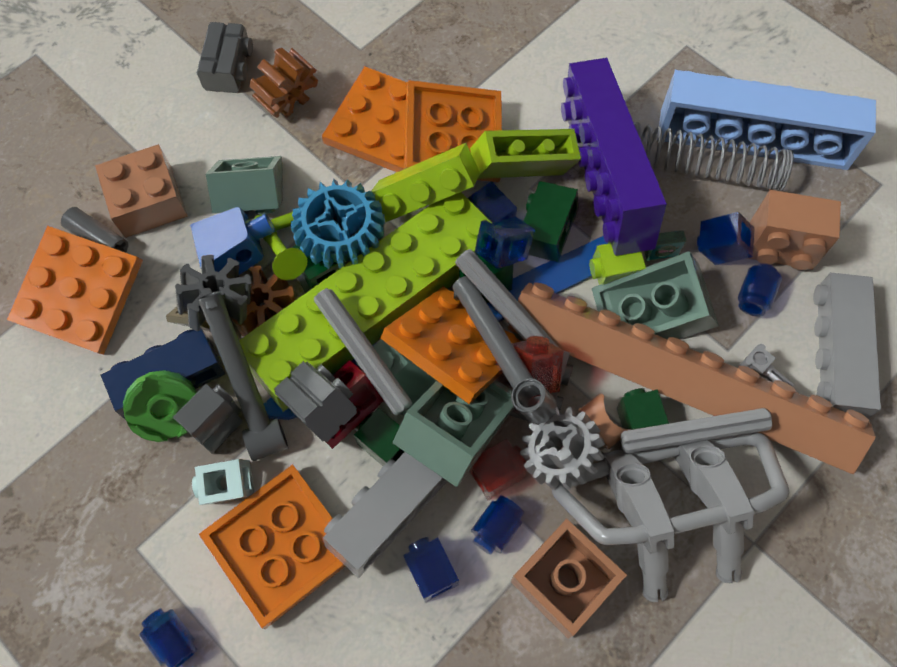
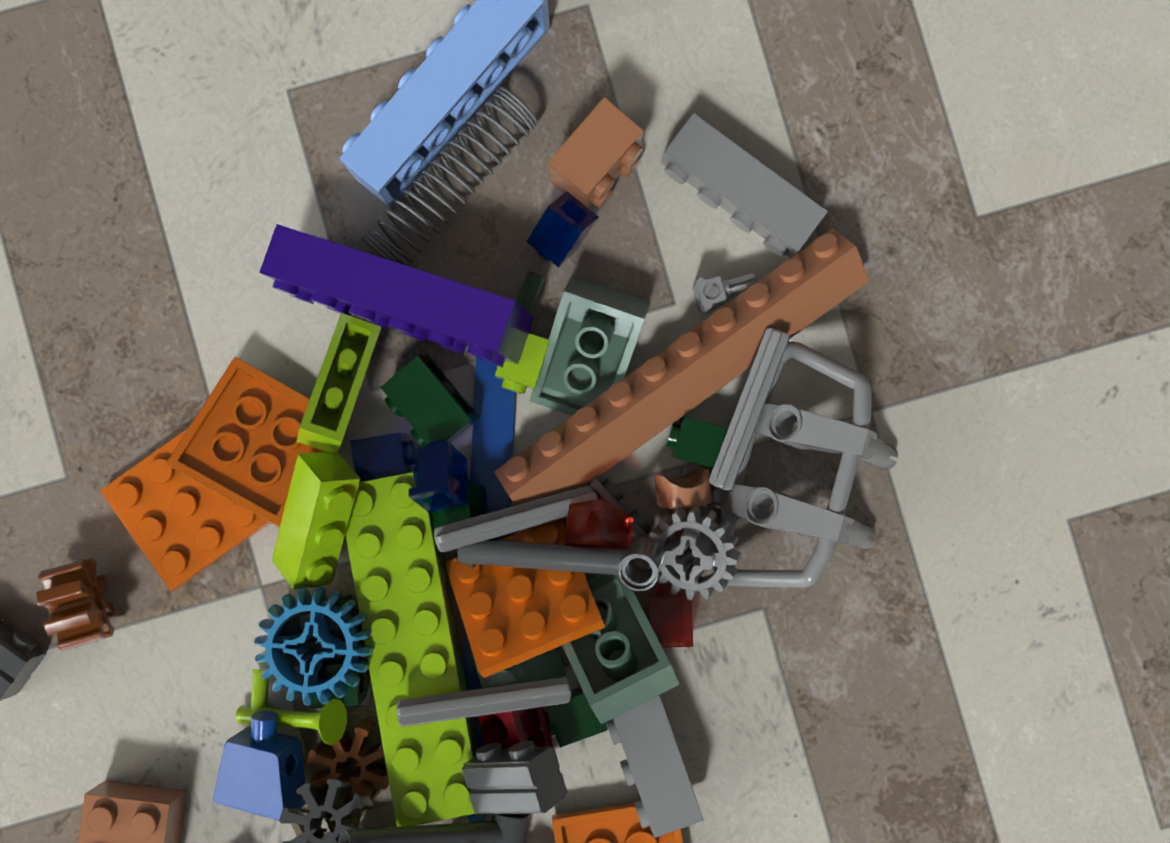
camera: 60 degrees left, 20 degrees up
(246, 184) = (187, 710): sand green slope -> none
(430, 568) = (728, 738): clear blue brick -> none
(497, 525) = (723, 650): clear blue brick -> none
(568, 578) = (814, 622): nougat brick -> none
(759, 289) = (634, 231): clear blue brick -> none

